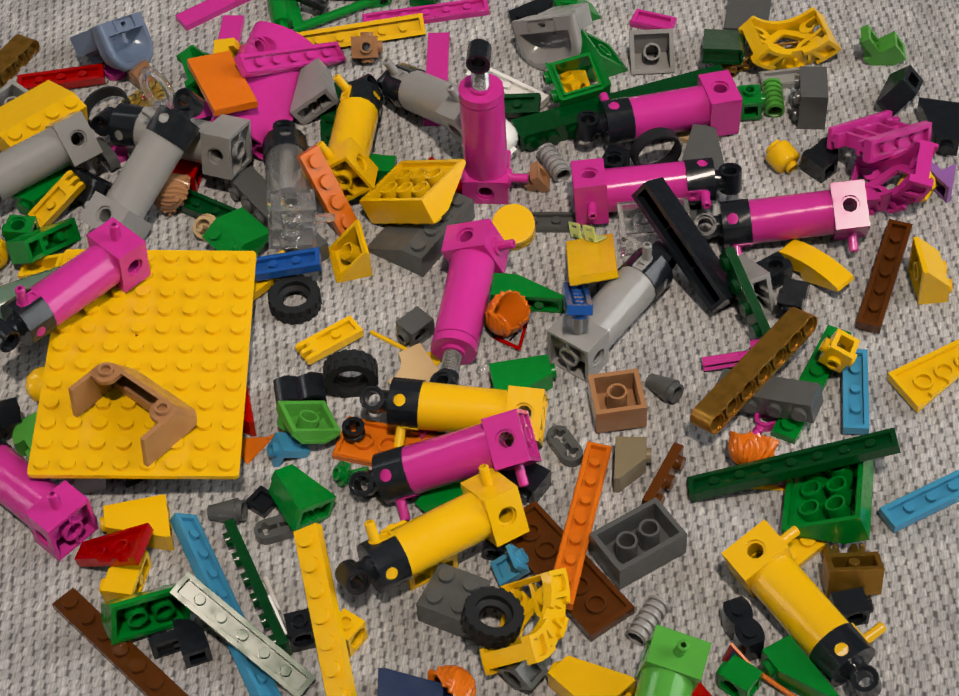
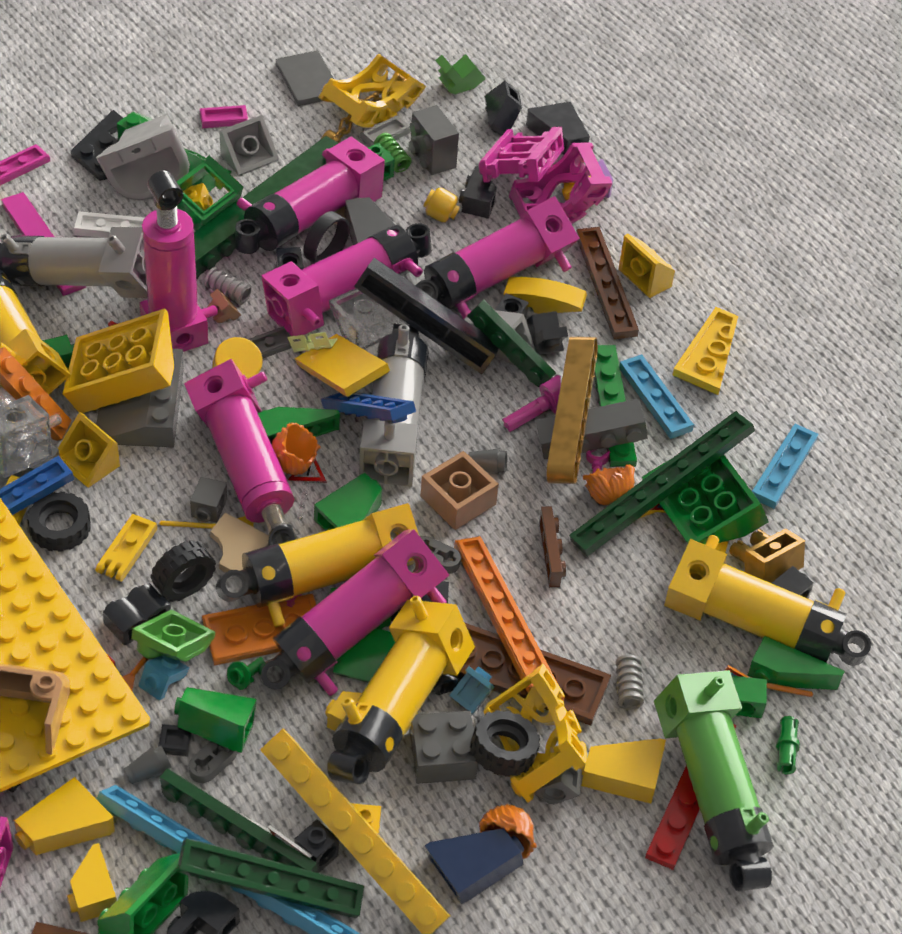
camera: 40 degrees left, 0 degrees up
(116, 548) = (62, 857): red wing -> none
(353, 422) = (222, 617): black bush -> none
(630, 460) = (506, 541): dark tan slope -> none
(637, 543) = (574, 614): dark grey brick -> none
(723, 47) = (315, 118): dark green piece -> none
(742, 628) = (714, 648): black brick -> none
(838, 350) = (627, 363): yellow brick -> none

